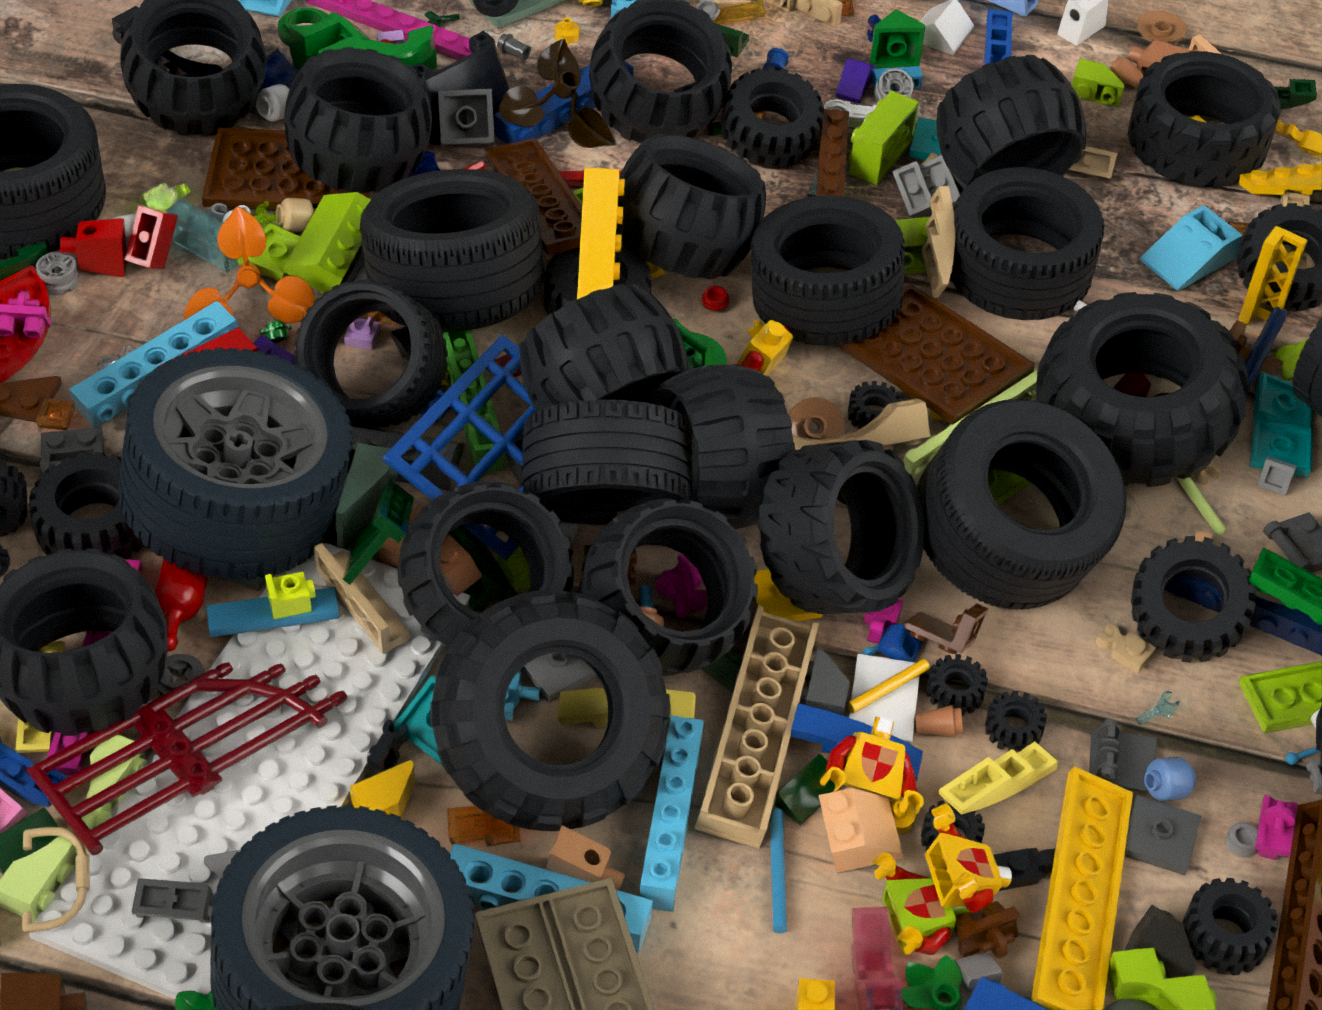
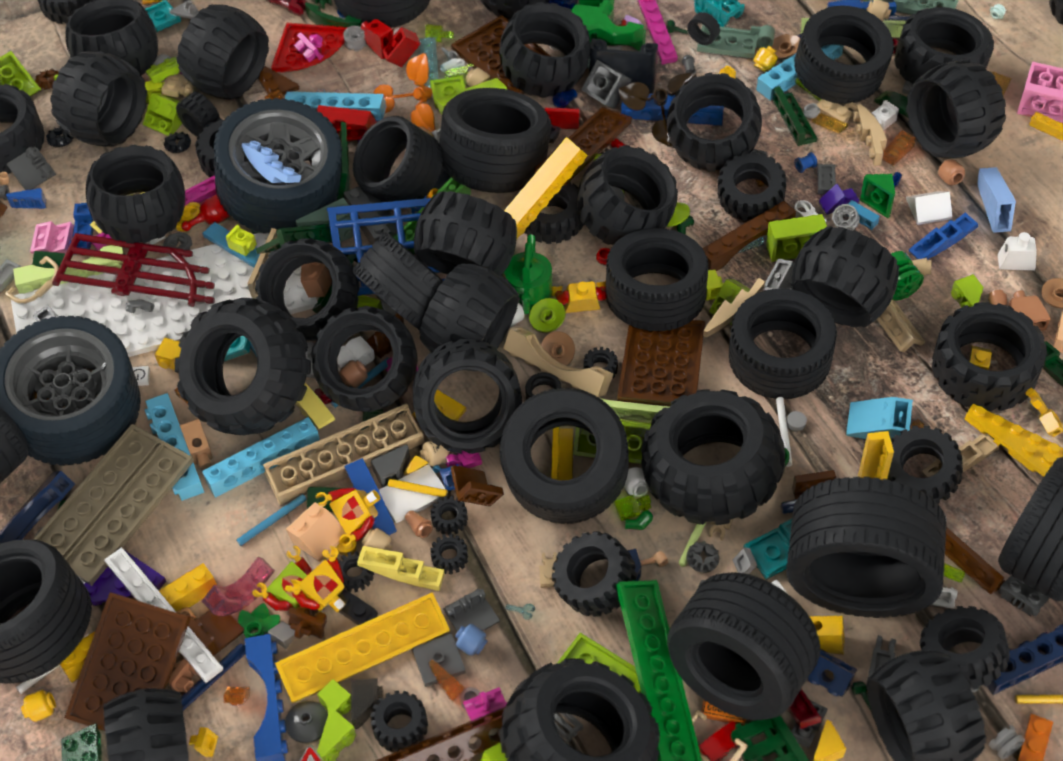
camera: 55 degrees right, 5 degrees up
(240, 456) = (267, 164): none -> light blue slope
(251, 778) = (142, 304): none -> dark grey arm
(816, 67) = (825, 177): none -> dark grey plate
(849, 632) = (434, 454): none -> tan head
(852, 664) = (415, 464): none -> yellow slope
(933, 775) = (377, 539): none -> tan head
(1136, 524) = (641, 522): none -> green arm
(1214, 841) = (448, 683): none -> clear orange slope
(1232, 514) = (695, 560): none -> dark grey gear

